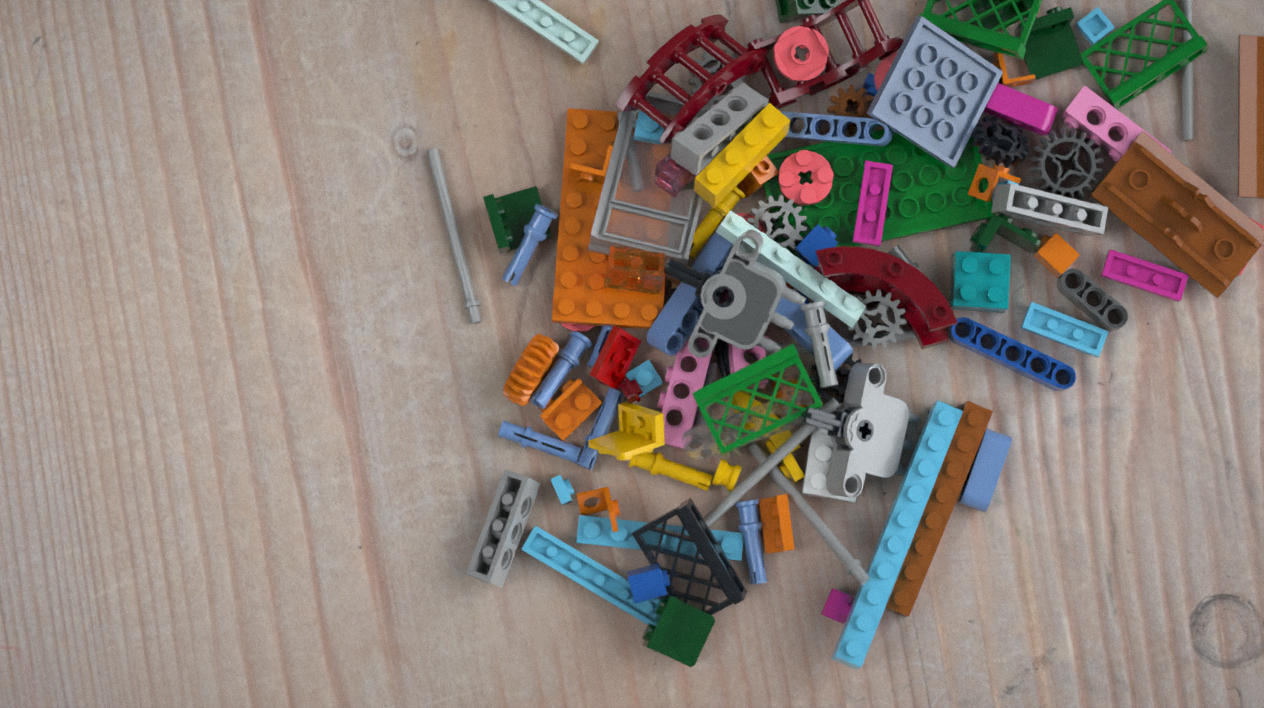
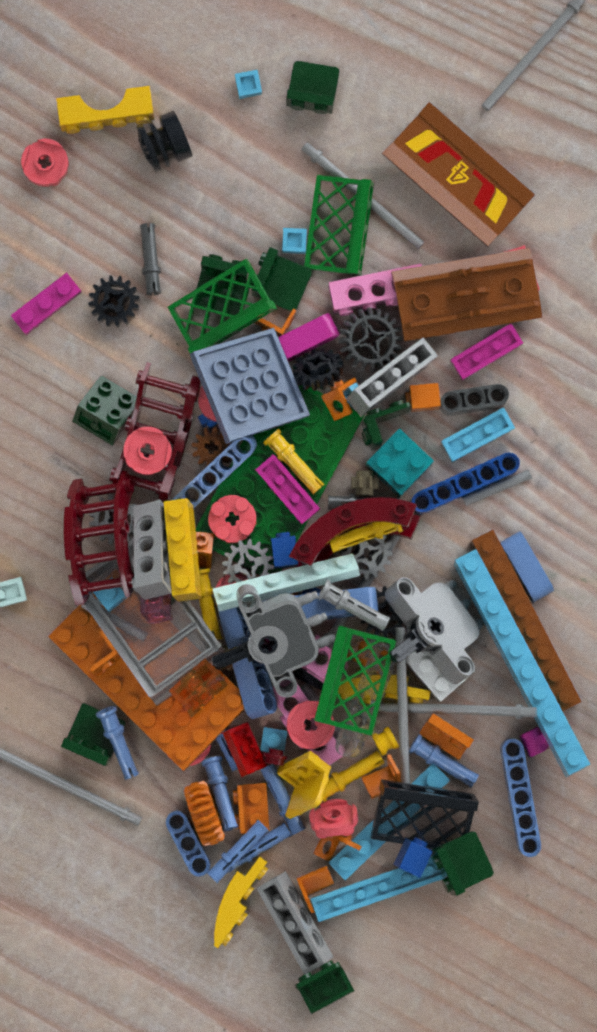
camera: 50 degrees left, 0 degrees up
(467, 463) = (231, 909): none -> yellow slope
(470, 600) = (324, 987): none -> dark green bracket
(493, 364) = (188, 855): none -> medium blue beam
(522, 426) = (238, 850): none -> medium blue pin
(551, 517) = (314, 882): none -> orange bracket
(563, 489) = (302, 859): medium azure plate -> none
(621, 486) = (344, 823): none -> coral plate
(672, 386) = (297, 731): none -> coral plate
(682, 493) = (372, 780): none -> orange bracket
(791, 627) = (527, 807): none -> medium blue beam
(894, 302) = (362, 534): none -> yellow pin
(902, 176) = (286, 453): none -> yellow pin
(936, 266) = (364, 483): none -> dark tan gear
(1032, 386) = (496, 488): none -> light grey bar

